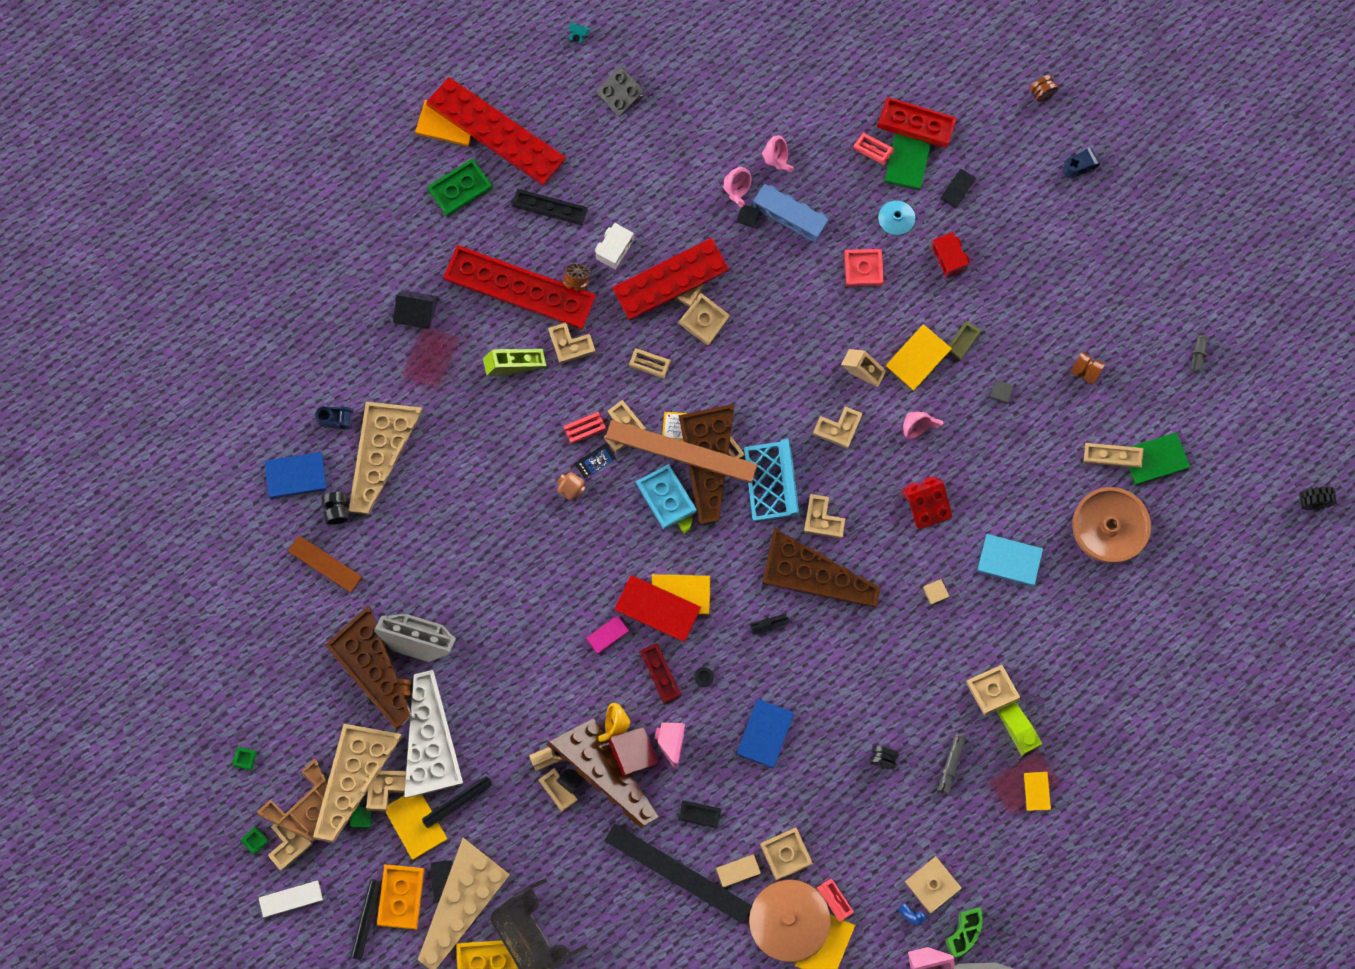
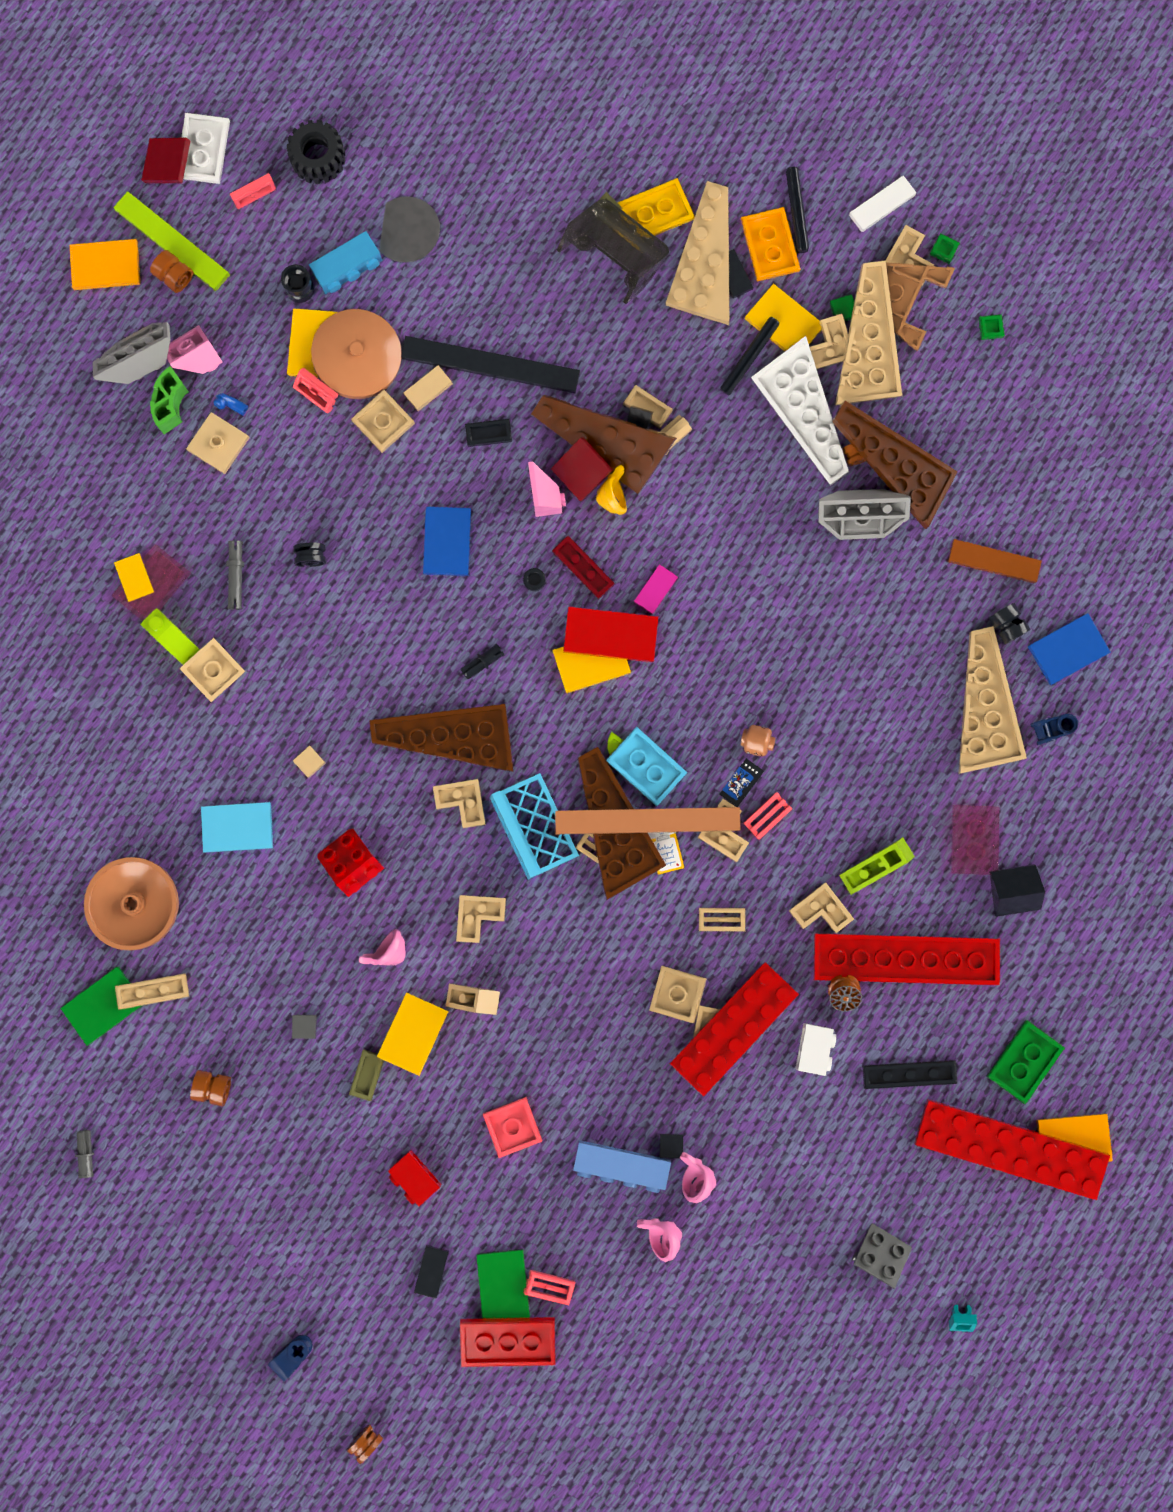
camera: 160 degrees right, 10 degrees up
(895, 225) = (497, 1195): medium azure dish -> none

